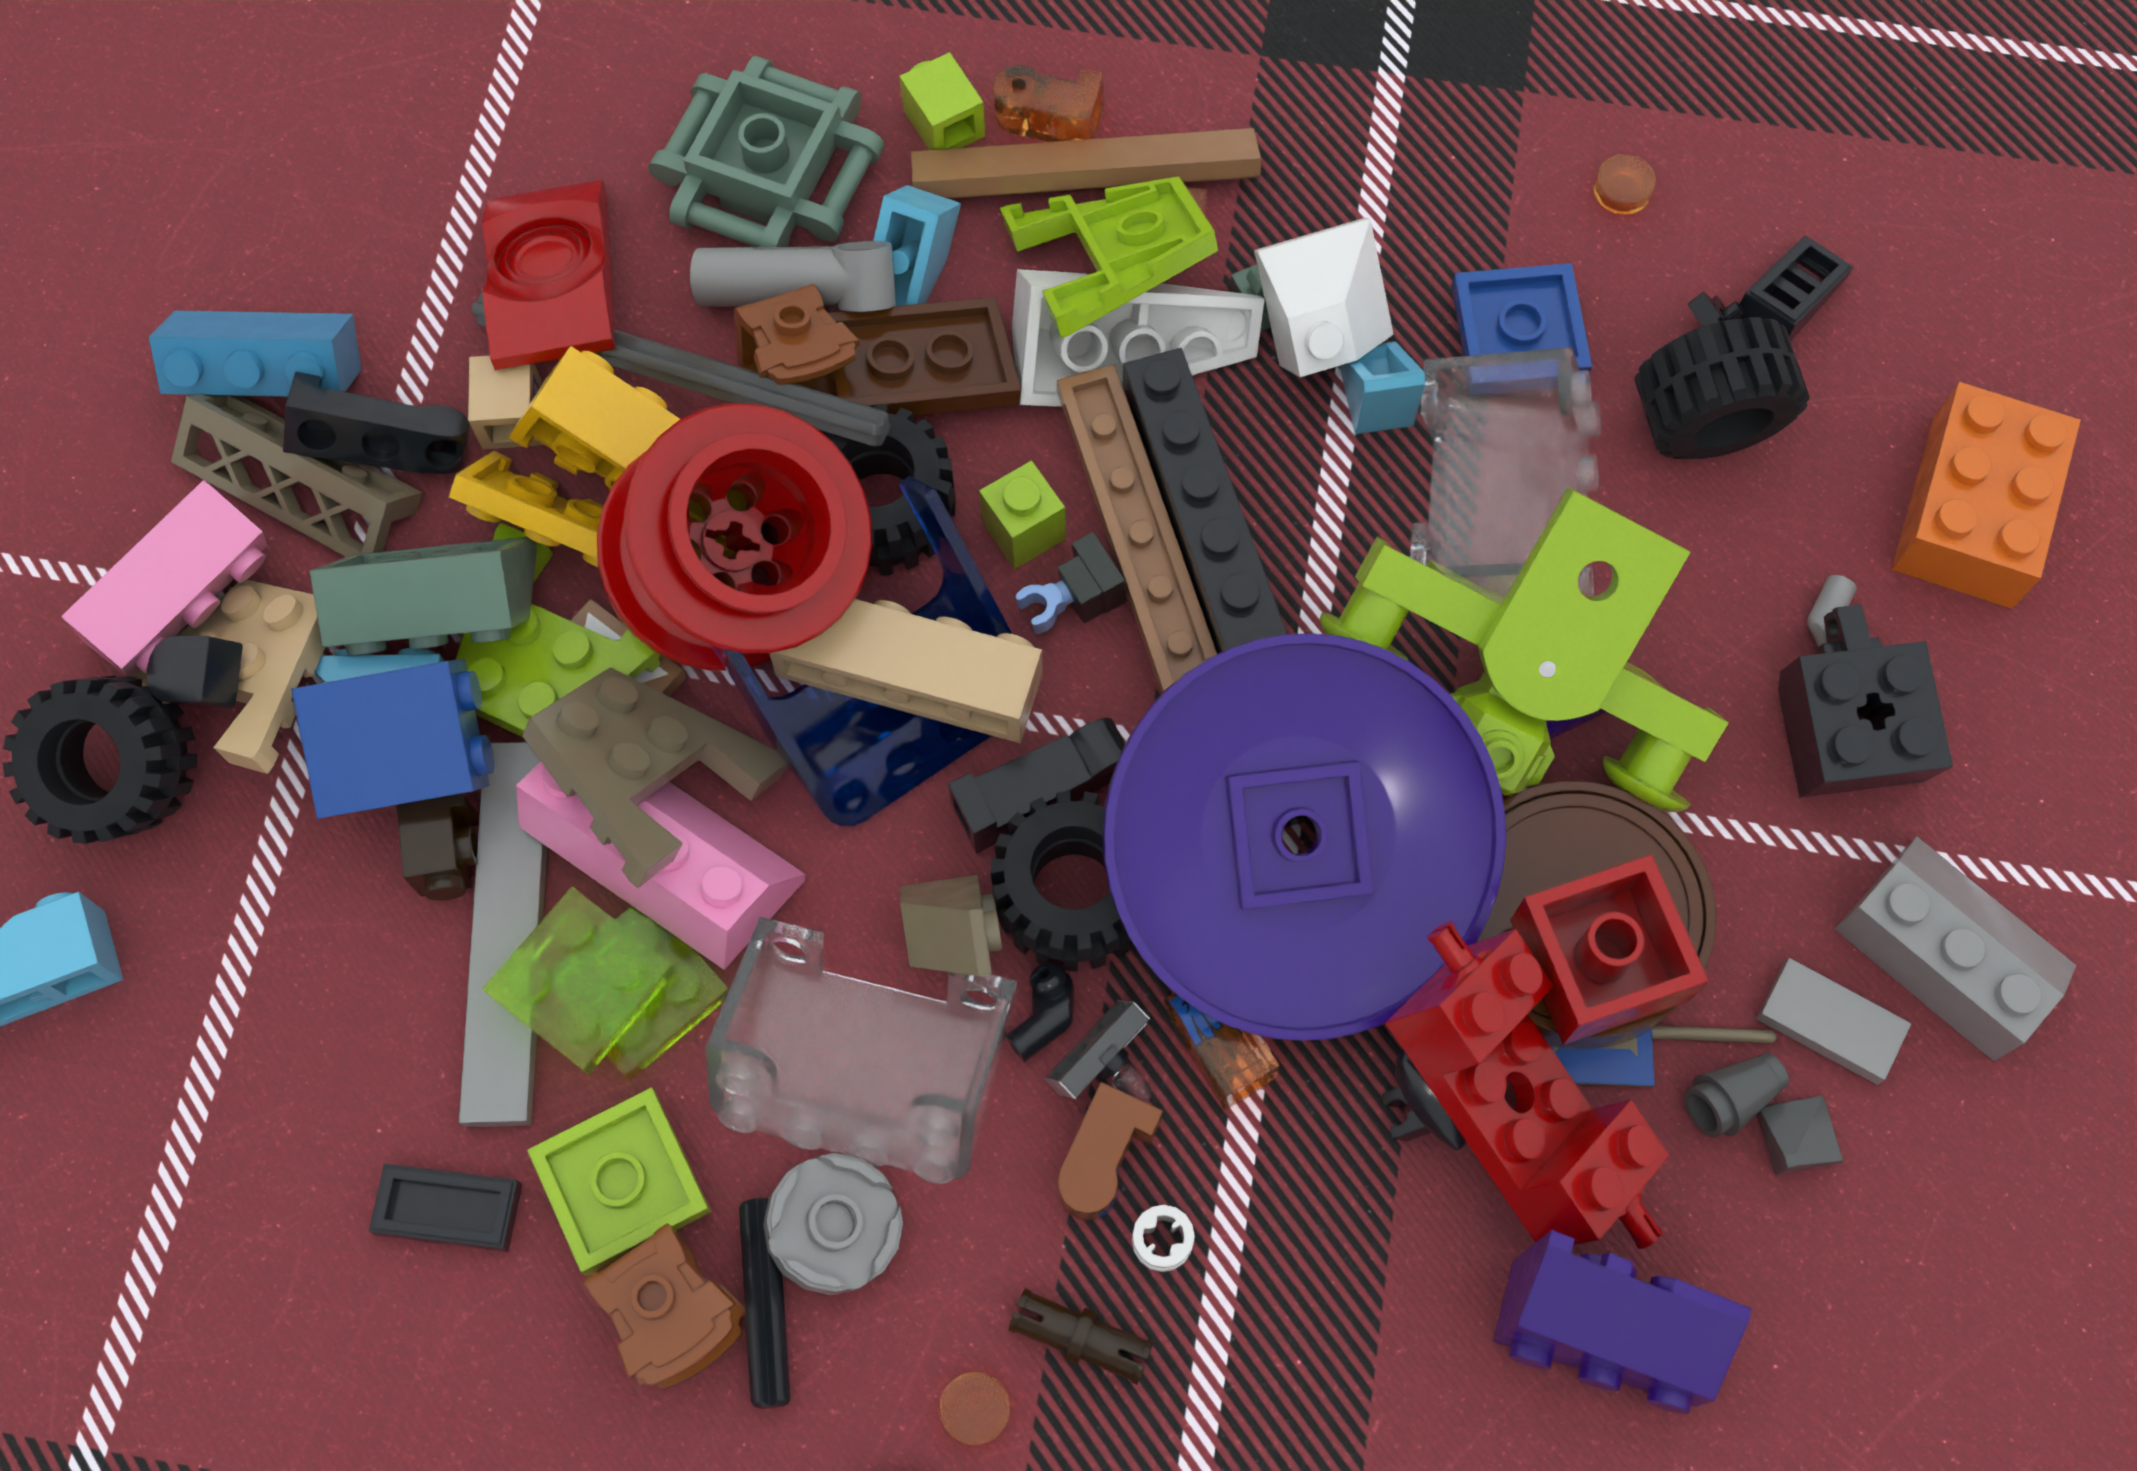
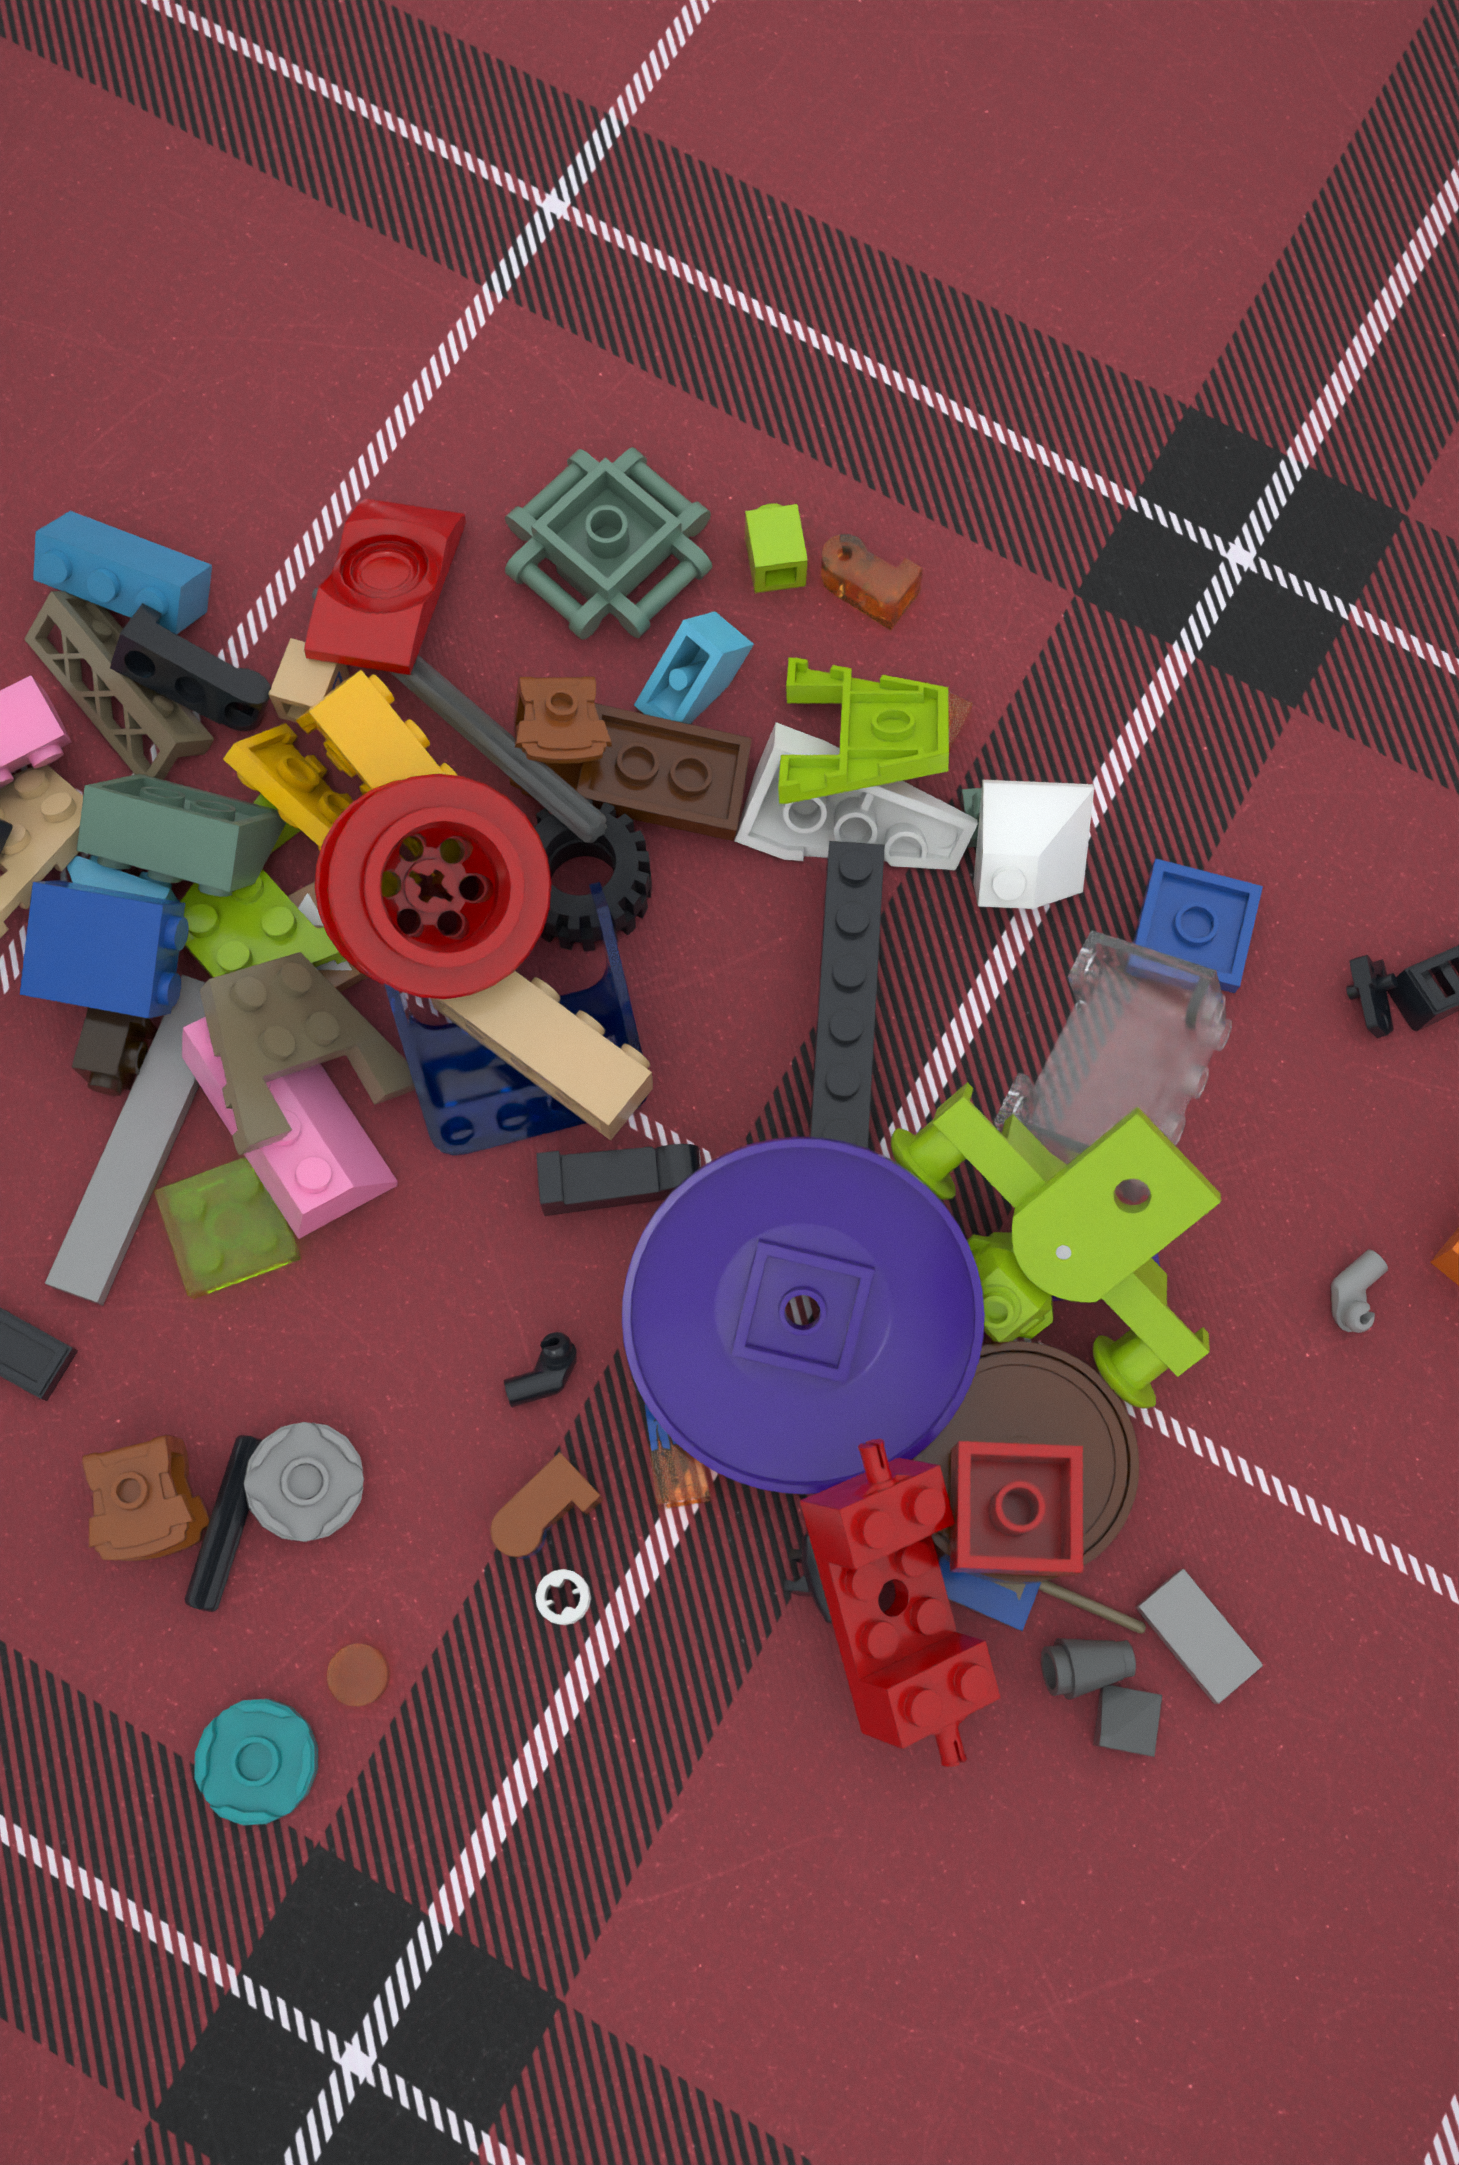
camera: 20 degrees right, 5 degrees up
(579, 980) = (179, 1205): clear neon green plate -> none
(618, 1180) = (150, 1380): lime plate -> none
(846, 275) = (631, 677): light grey piece -> none
(854, 1059) = (375, 1351): clear windscreen -> none
(950, 925) = (491, 1273): dark tan slope -> none
(1023, 514) = (695, 941): lime brick -> none
(1031, 919) = (560, 1255): black tyre -> none
(1081, 1336) = (465, 1650): dark brown pin -> none
(1086, 163) = (879, 644): medium nougat tile -> none
(1086, 582) = (725, 1017): pearl dark grey piece -> none
(1102, 1054) = (575, 1426): dark grey piece -> none
(1136, 523) = (788, 987): medium nougat plate -> none
(1383, 389) = (1050, 938): medium azure slope -> none
(1616, 1327) = (896, 1824): dark purple wedge -> none
(1624, 184) = (1345, 827): clear orange tile -> none
(1721, 388) = (1338, 1052): black tyre -> none
(1887, 686) = (1345, 1351): black hinge -> none
(1958, 950) = (1335, 1617): light grey slope -> none

